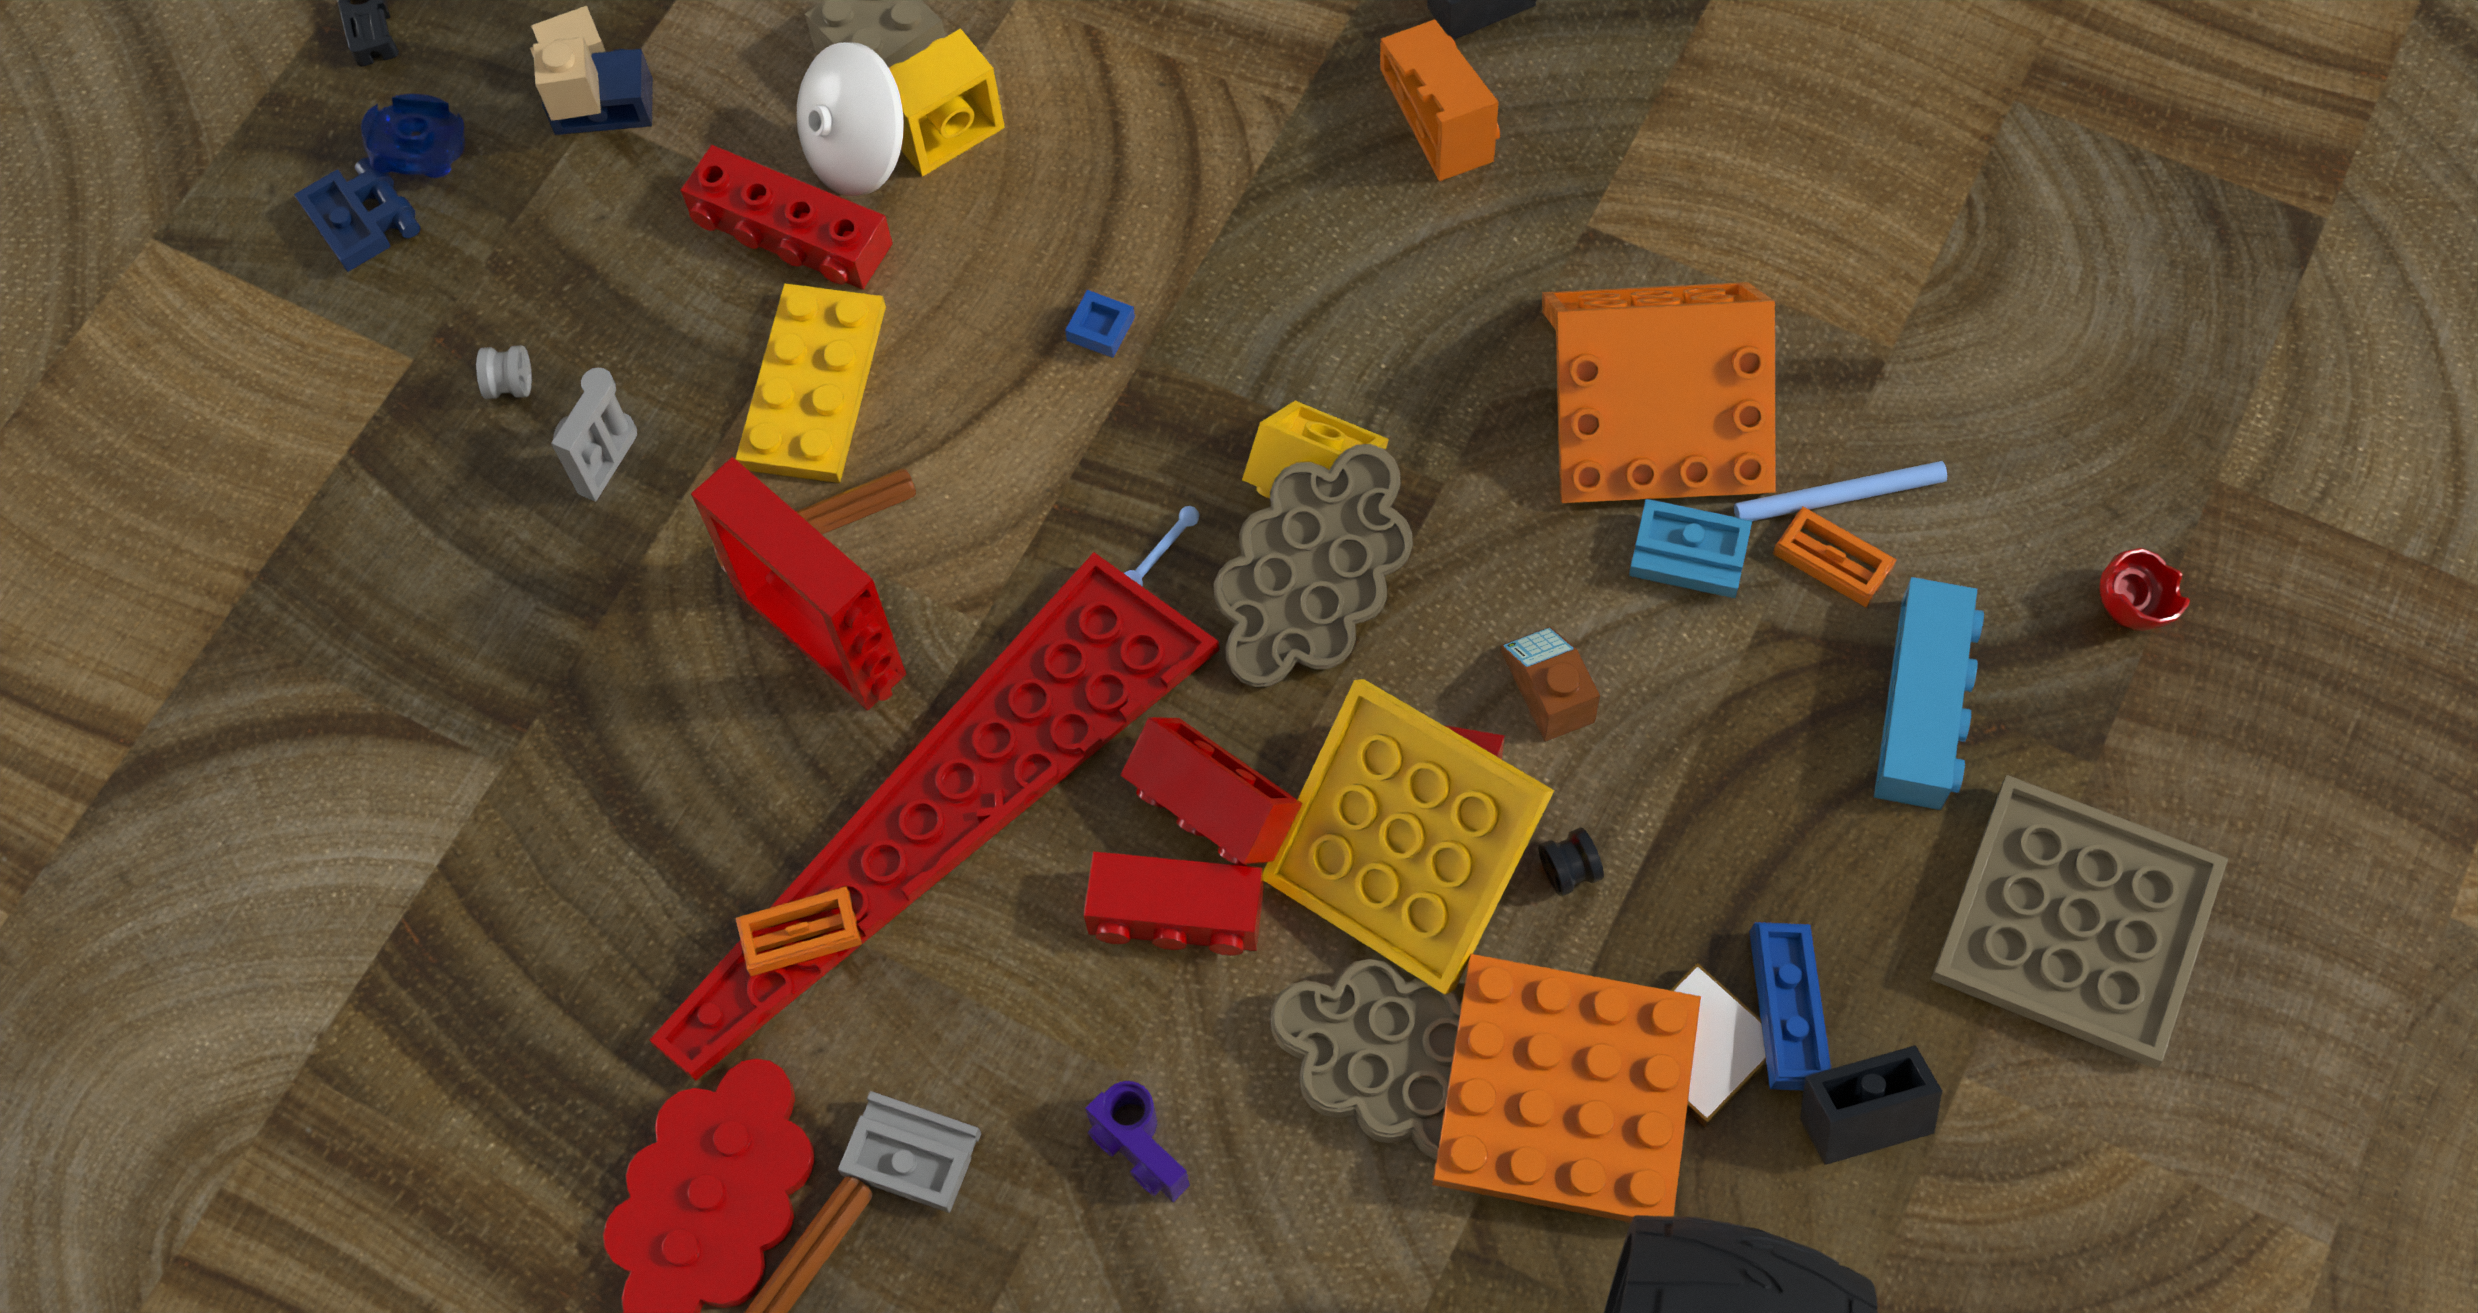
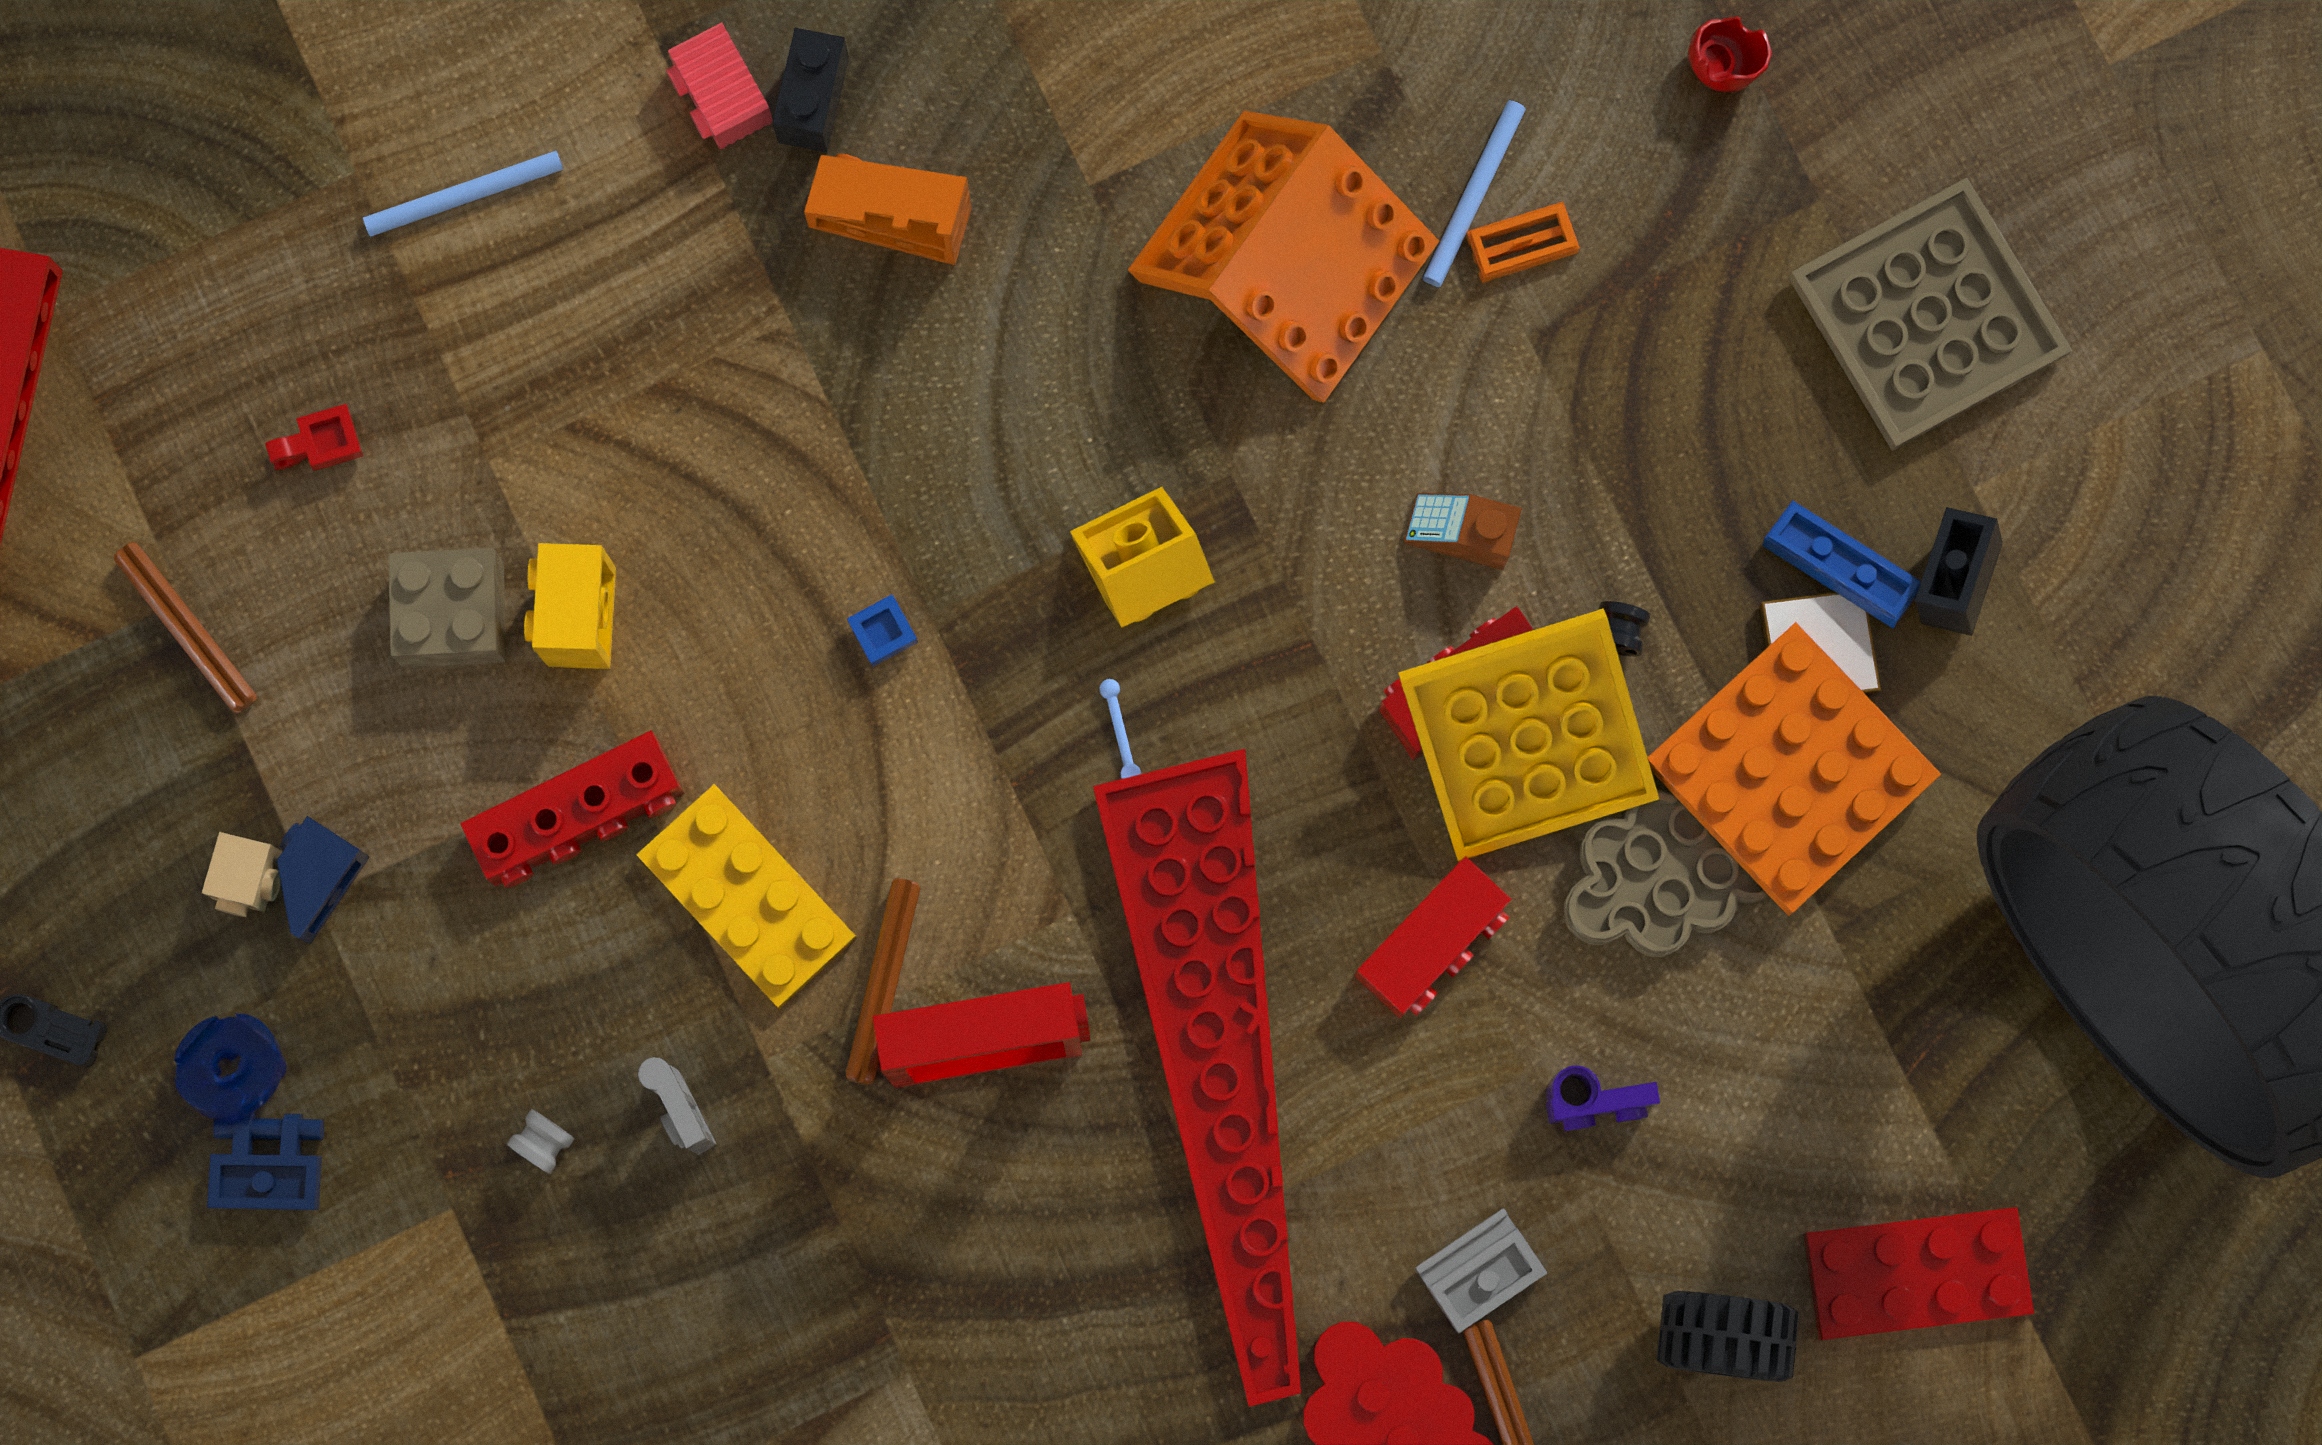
camera: 60 degrees left, 15 degrees up
(566, 78) = (304, 899): tan brick -> none
(804, 950) = (1232, 1278): orange tile -> none
(850, 119) = (535, 692): white dish -> none
(1210, 791) = (1373, 847): red brick -> none
(1313, 565) = (1245, 631): dark tan plate -> none
(1690, 548) = (1437, 340): dark azure plate -> none
(1928, 693) = (1686, 270): dark azure brick -> none

